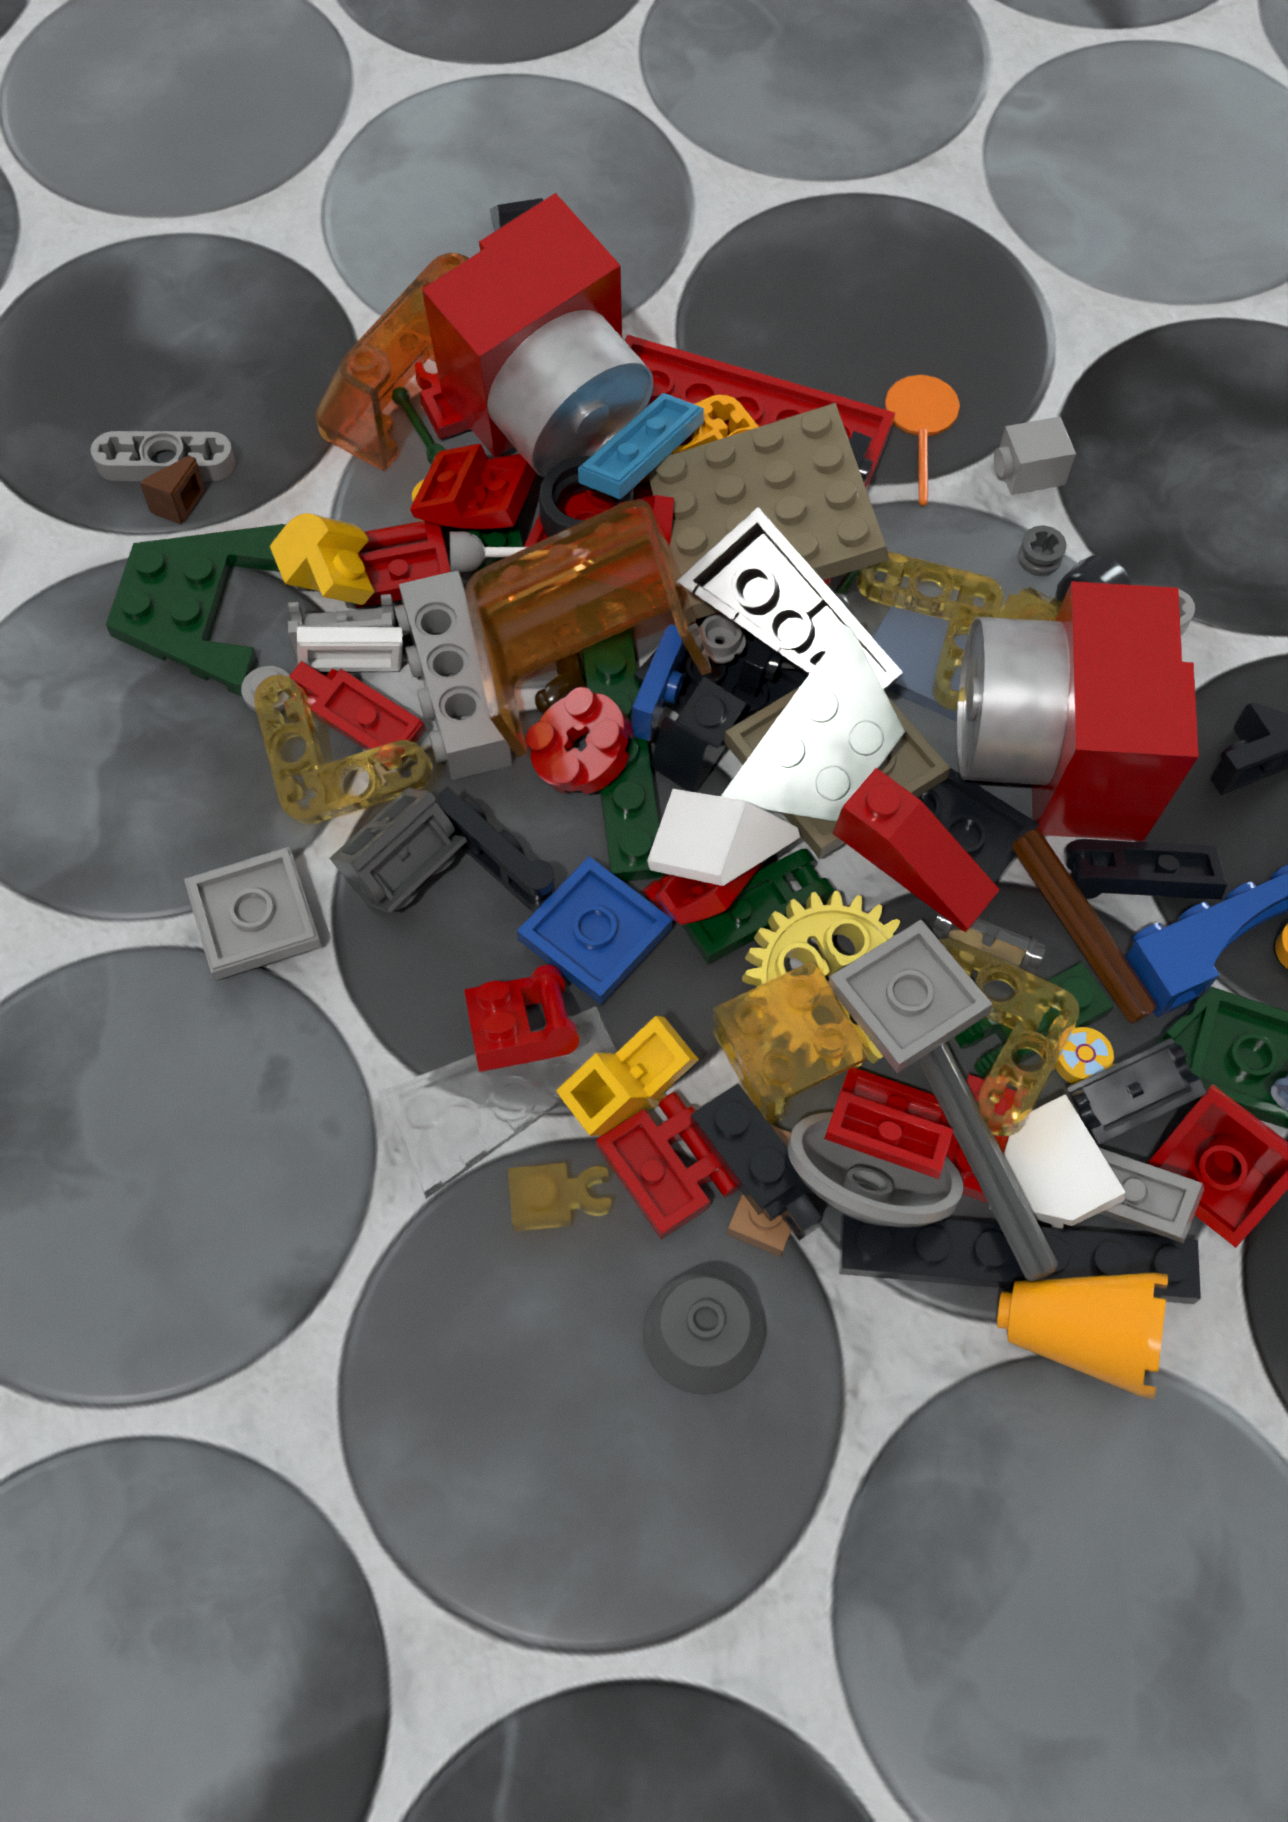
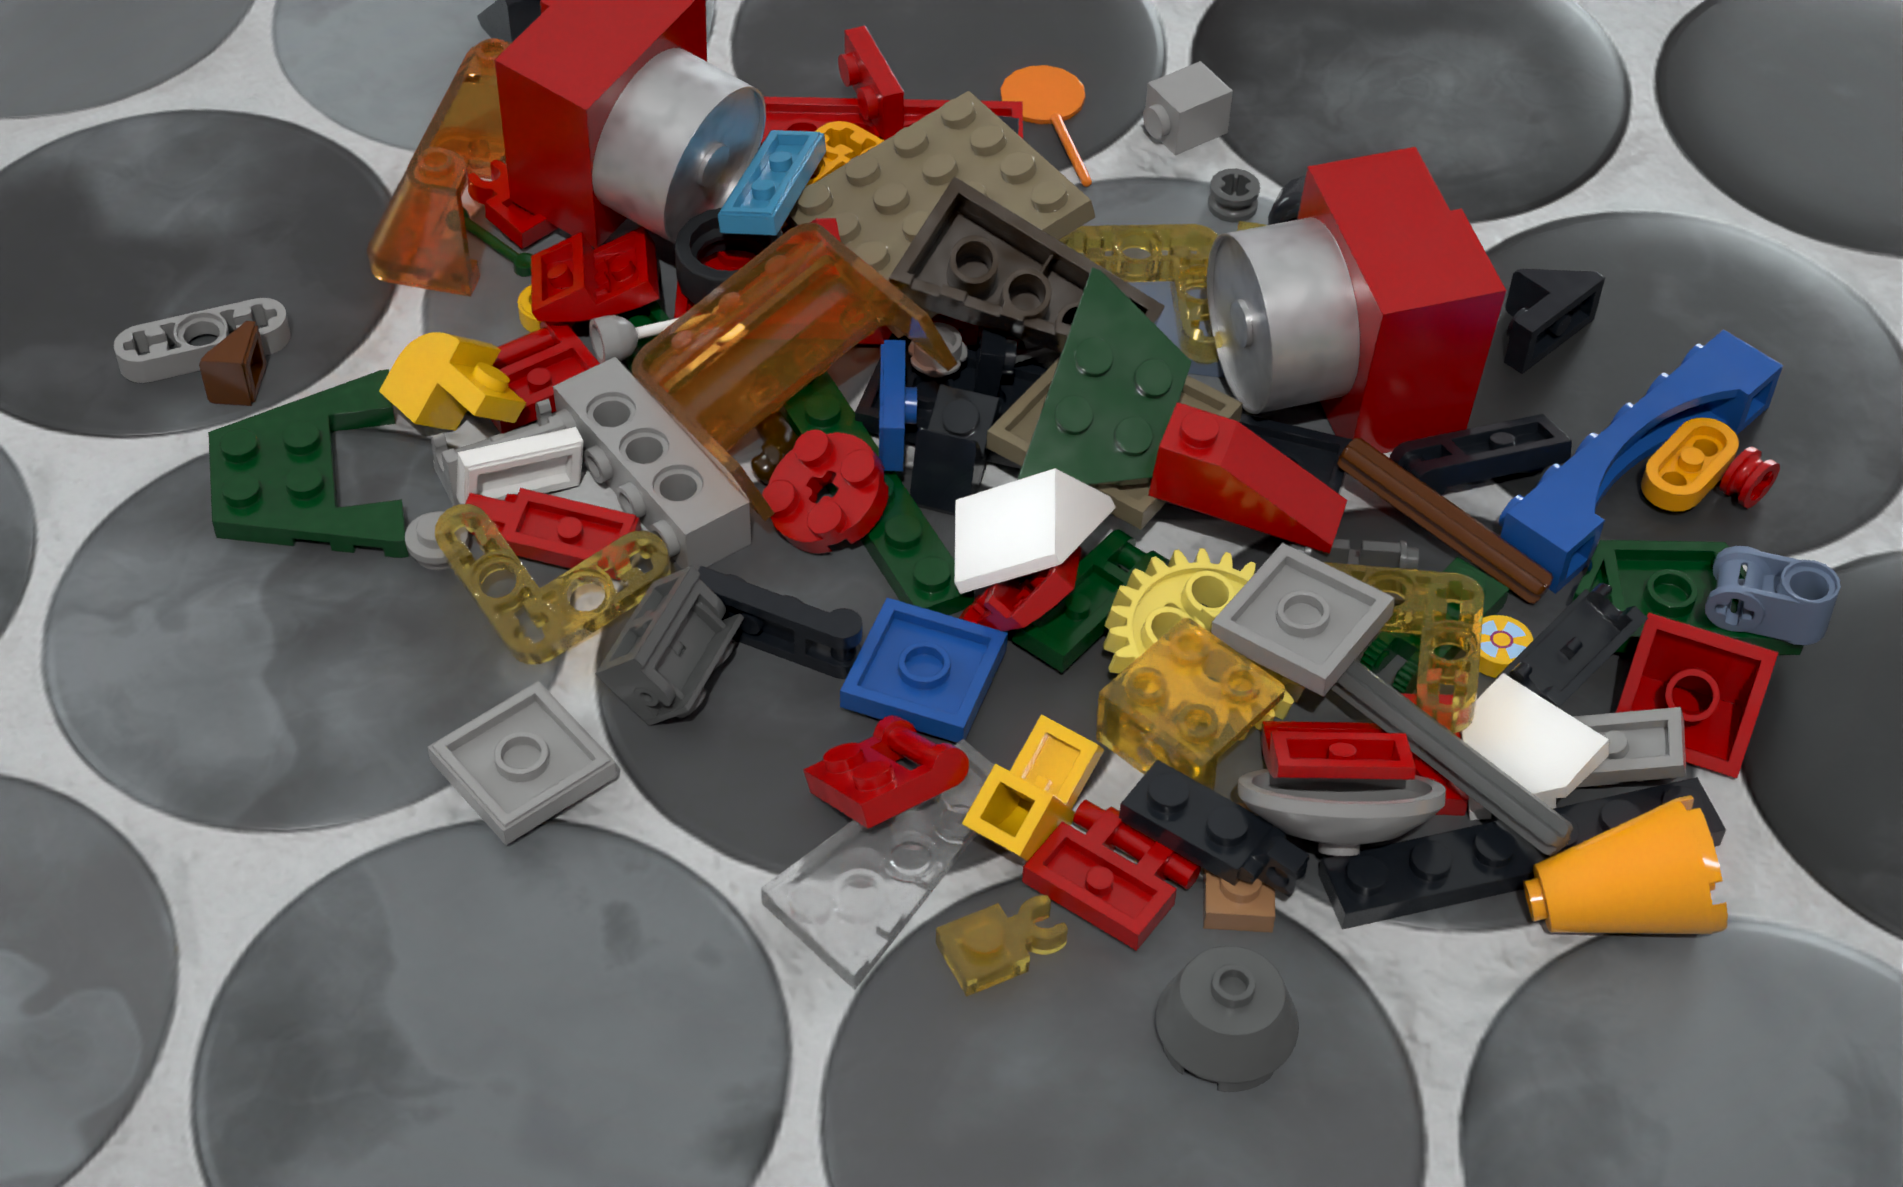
camera: 20 degrees left, 15 degrees down
(769, 380) = (873, 81): none -> red plate

